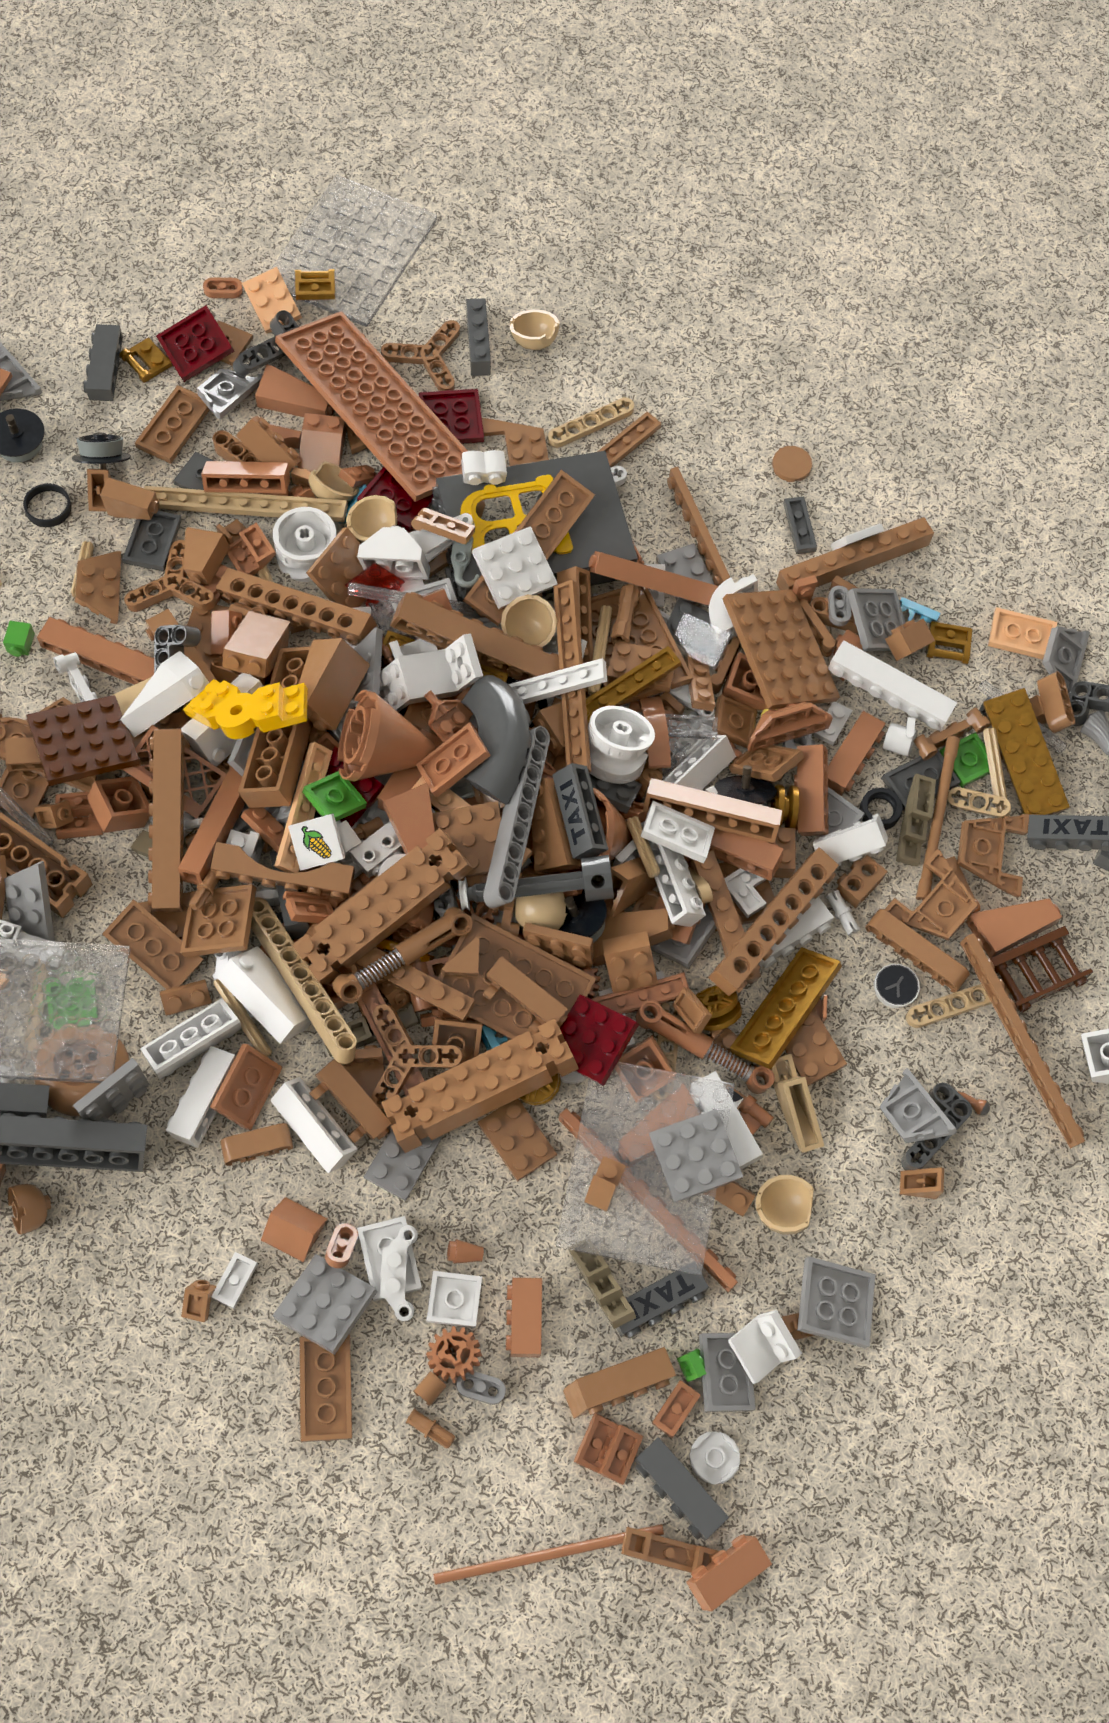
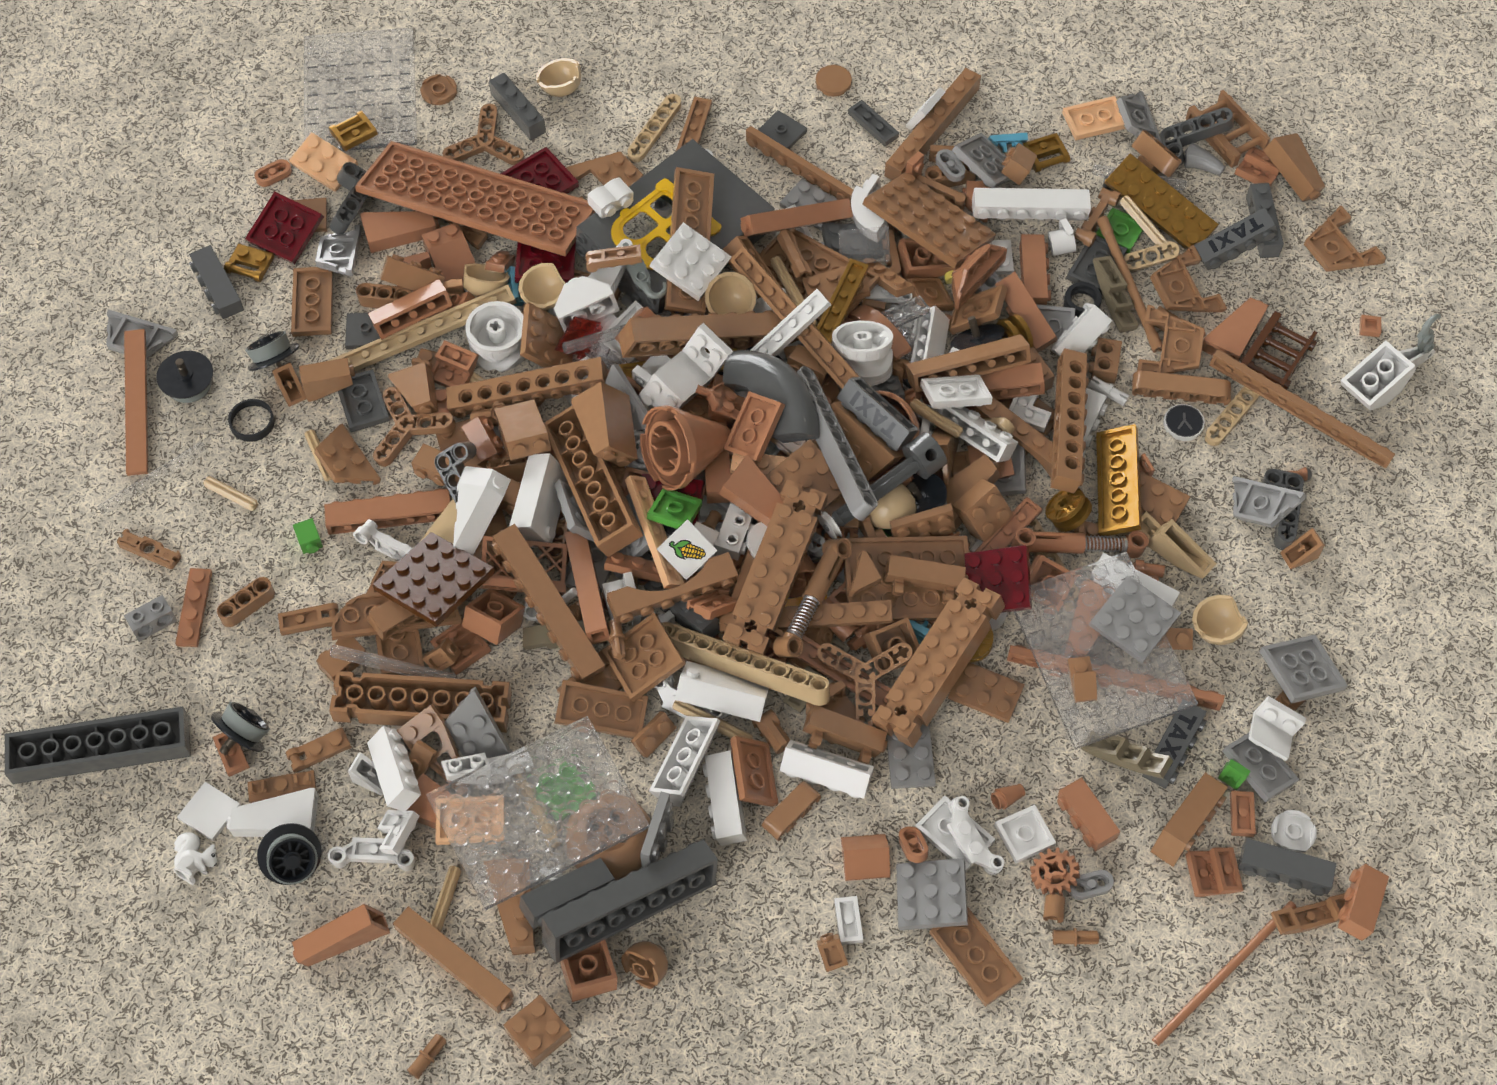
camera: 25 degrees left, 5 degrees down
(239, 713) = (561, 481): yellow plate -> none
(292, 1058) = (772, 731): none -> medium nougat piece
(421, 285) = (440, 94): none -> medium nougat tile
(692, 1010) = (1054, 519): medium nougat tile -> none
(708, 487) = (783, 129): none -> dark grey plate

